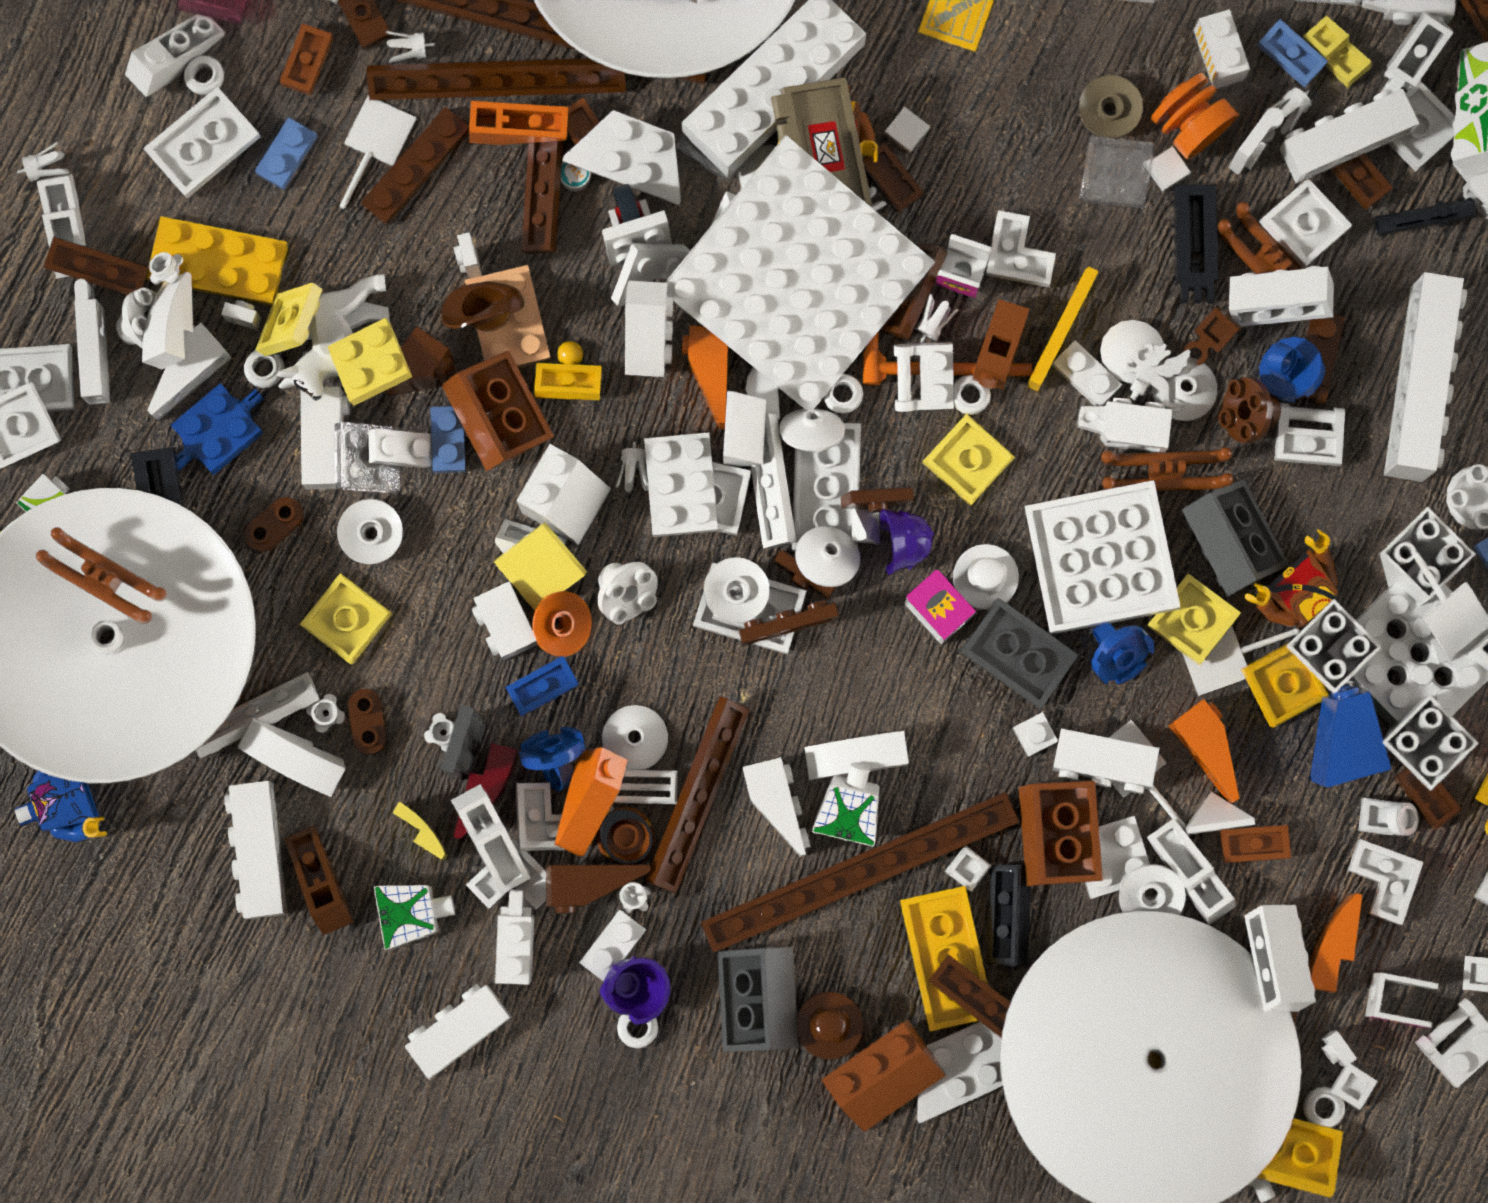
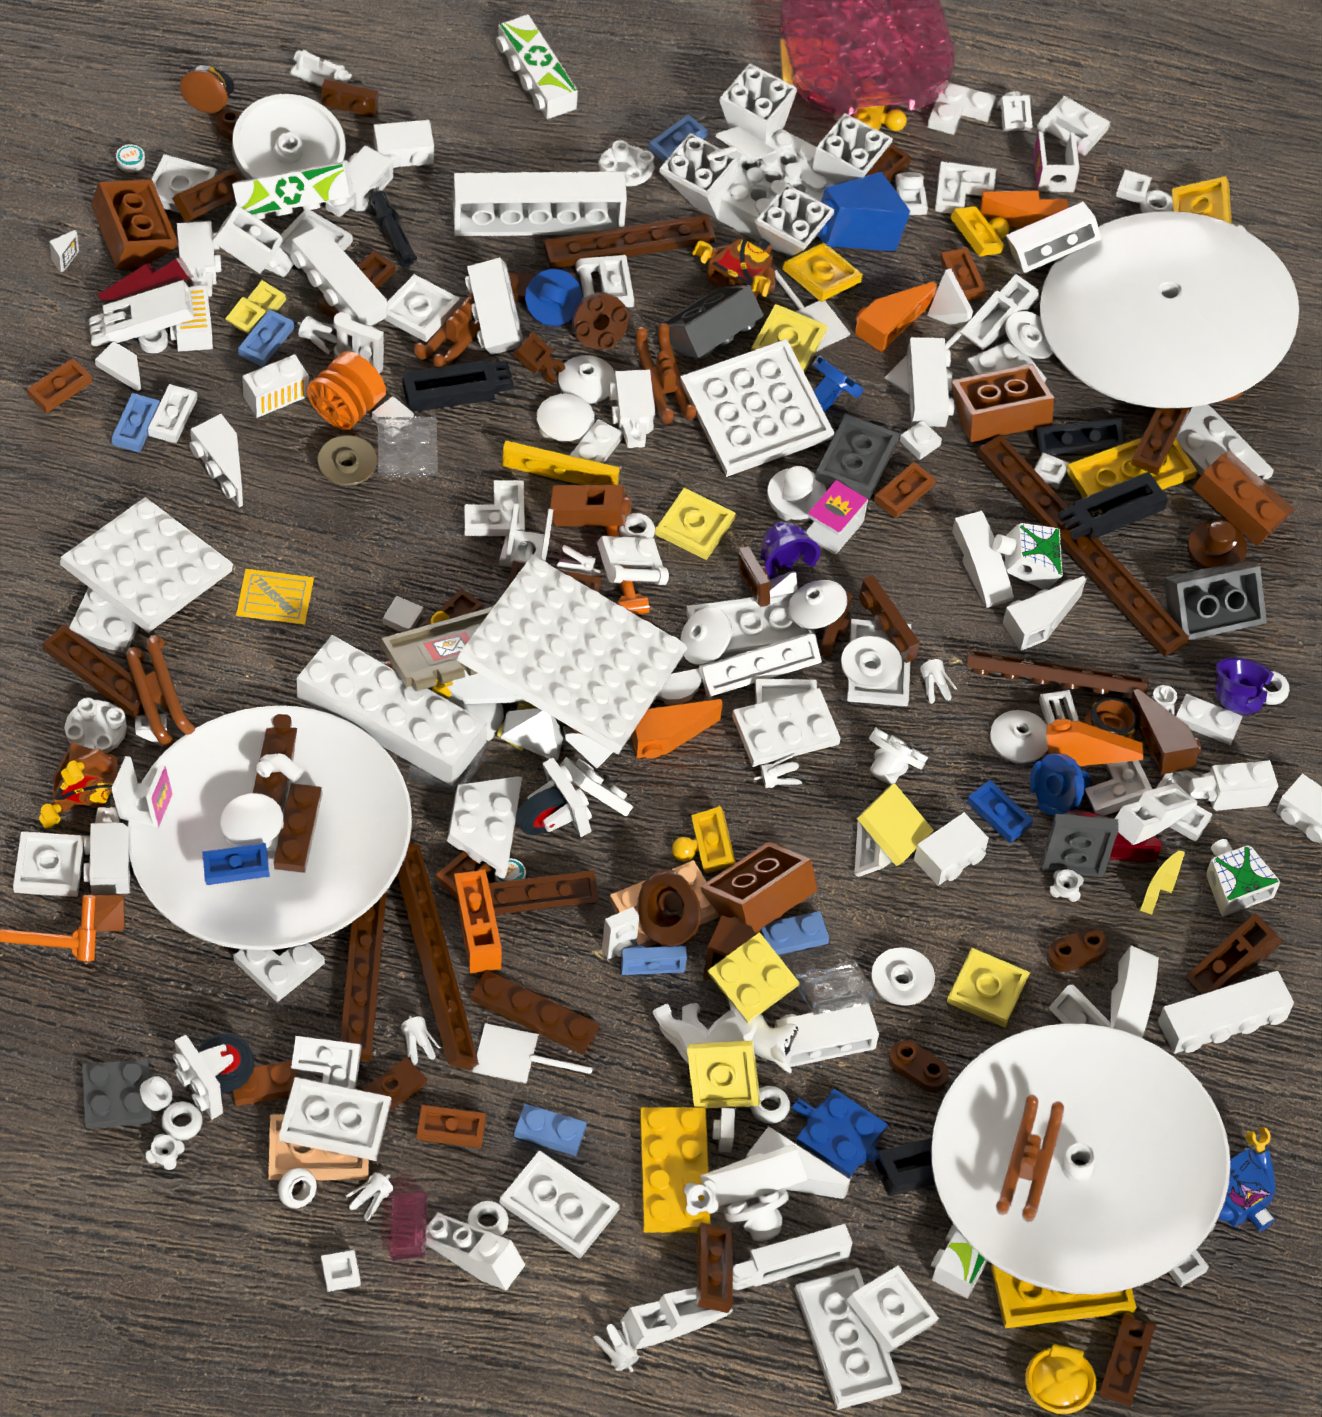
camera: 110 degrees left, 25 degrees down
(324, 722) = (1083, 977): white plate -> none
(400, 448) = (818, 961): white plate -> none
(446, 276) = (653, 960): none -> medium blue plate
(563, 494) = (822, 823): white slope -> none
(573, 626) = (940, 803): orange dish -> none
(647, 328) = (654, 766): white brick -> none
(722, 660) = (933, 672): none -> white piece
(744, 430) = (733, 685): white slope -> none
(853, 403) = (667, 616): white piece -> none
(892, 926) = (1120, 504): none -> black hinge
(967, 695) = (904, 490): none -> dark orange plate
(1151, 374) = (574, 393): white piece -> none
(1314, 881) = (981, 235): none -> yellow plate
(1337, 1049) = (1108, 199): white plate -> none
(1364, 474) = (630, 240): none -> reddish brown plate

